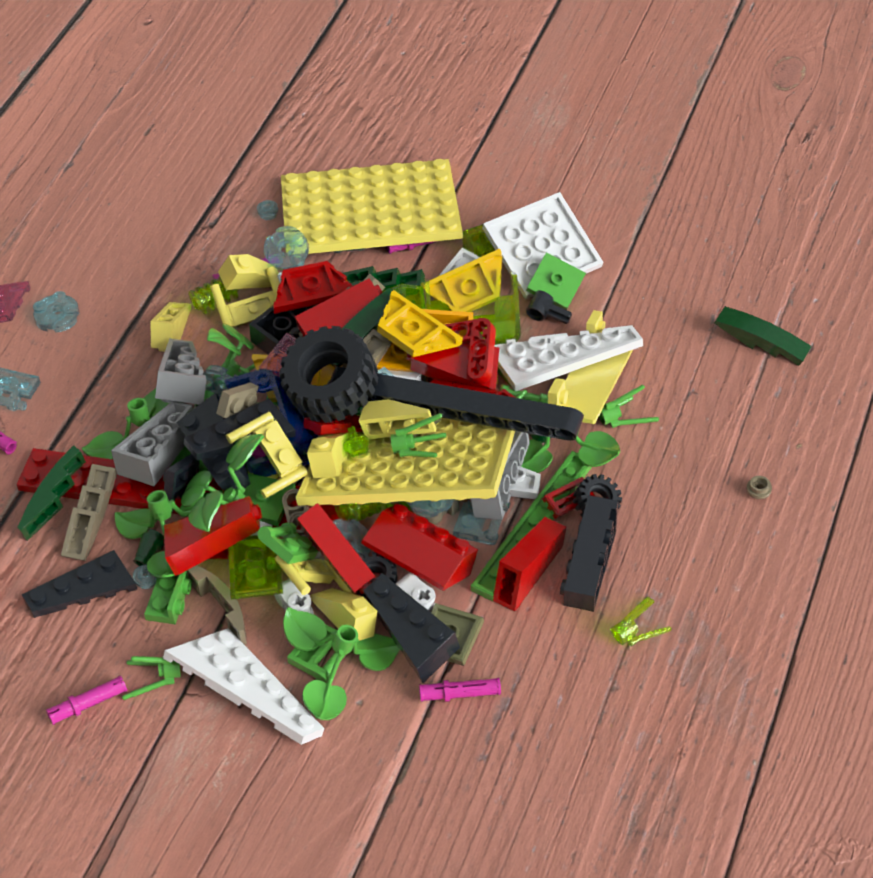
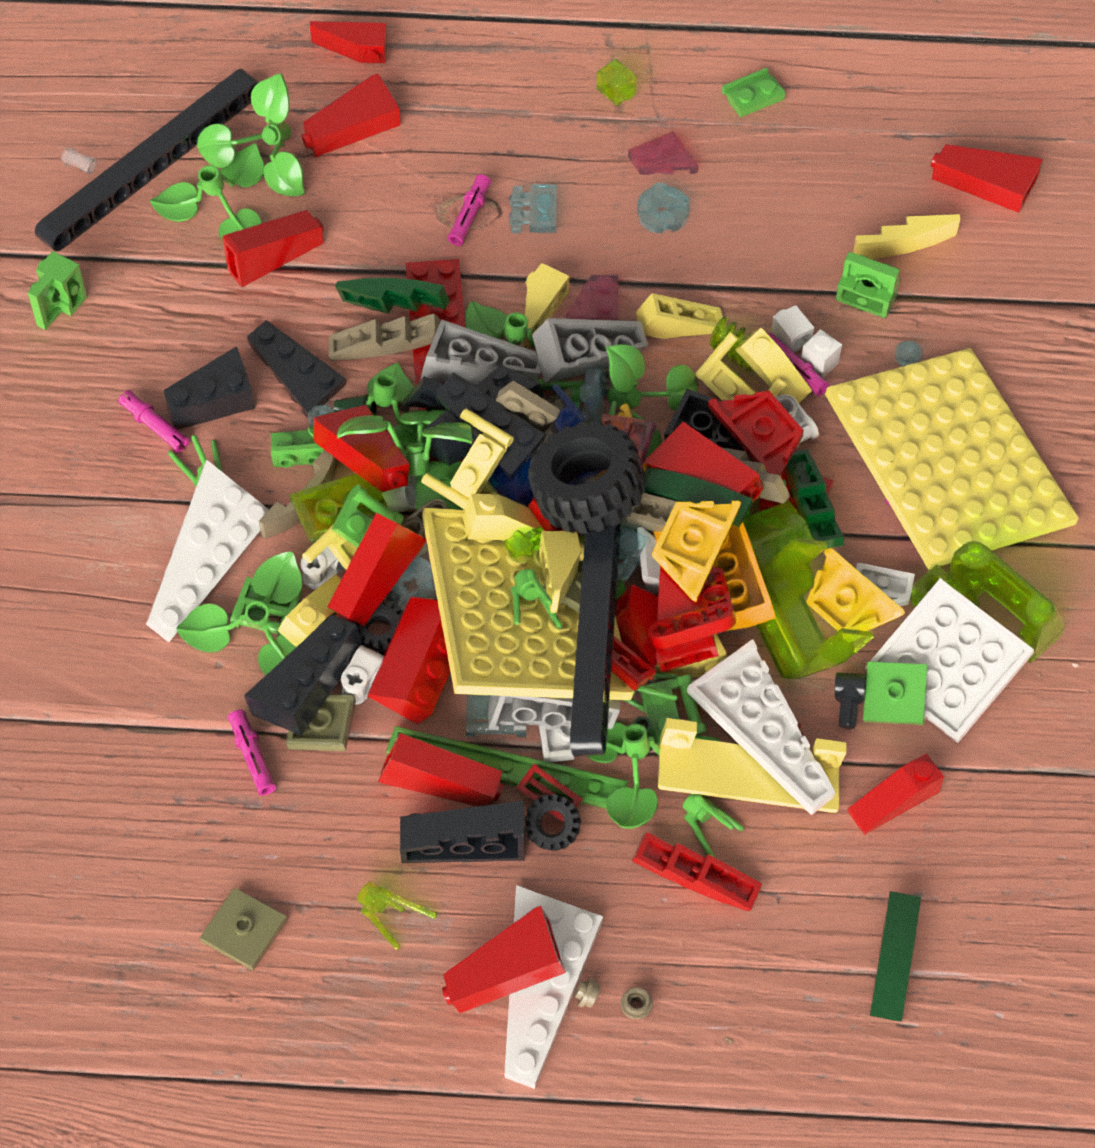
camera: 70 degrees right, 10 degrees up
(82, 645) = (210, 392): none -> black wedge
(103, 401) = (544, 295): none -> light yellow slope
(124, 372) = (597, 299): none -> clear pink wing
(135, 127) = (987, 174): none -> red slope
(164, 183) = (902, 239): none -> light yellow slope
(201, 209) = (868, 285): none -> bright green brick
(212, 260) = (792, 328): none -> white brick
(247, 245) = (822, 353): none -> white brick
(294, 257) = (833, 392): clear light blue plate -> none
(504, 196) = (982, 570): none -> clear neon green windscreen
(624, 729) = (243, 929): none -> olive plate
(634, 301) = (897, 794): none -> slope
(663, 428) = (694, 872): none -> red slope
(713, 546) = (506, 964): none -> red slope
(719, 538) = (540, 1009): none -> white wing
(744, 512) = (587, 992): none -> dark tan plate

